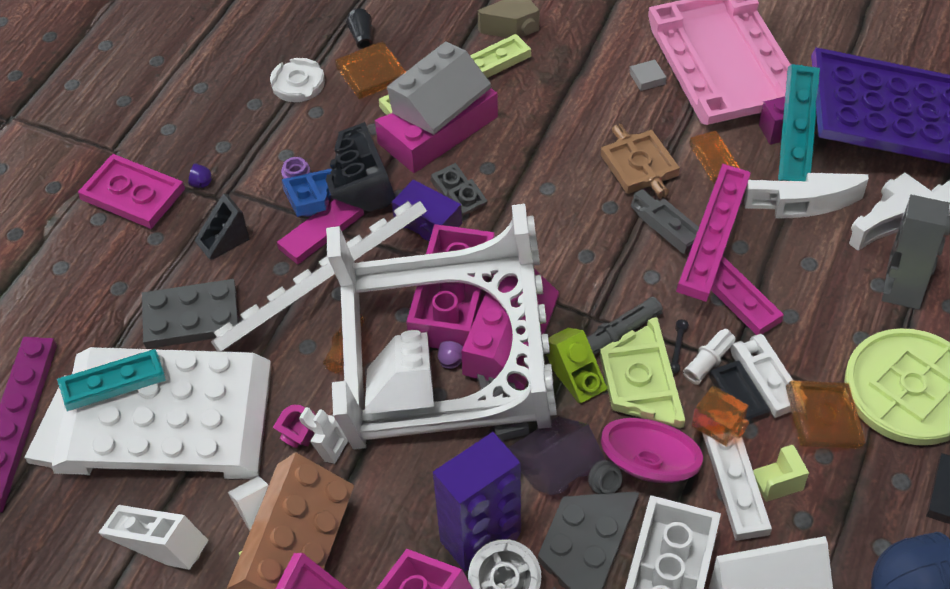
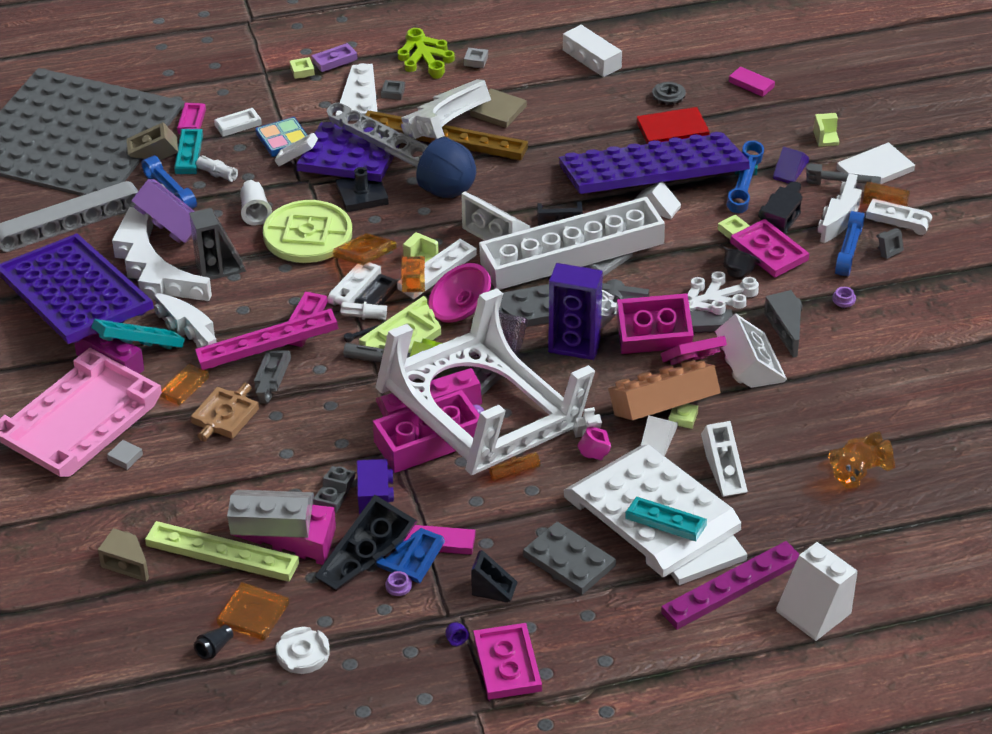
camera: 130 degrees left, 10 degrees down
(307, 281) = (486, 488): white plate -> none
(400, 375) = (525, 396): white slope -> none

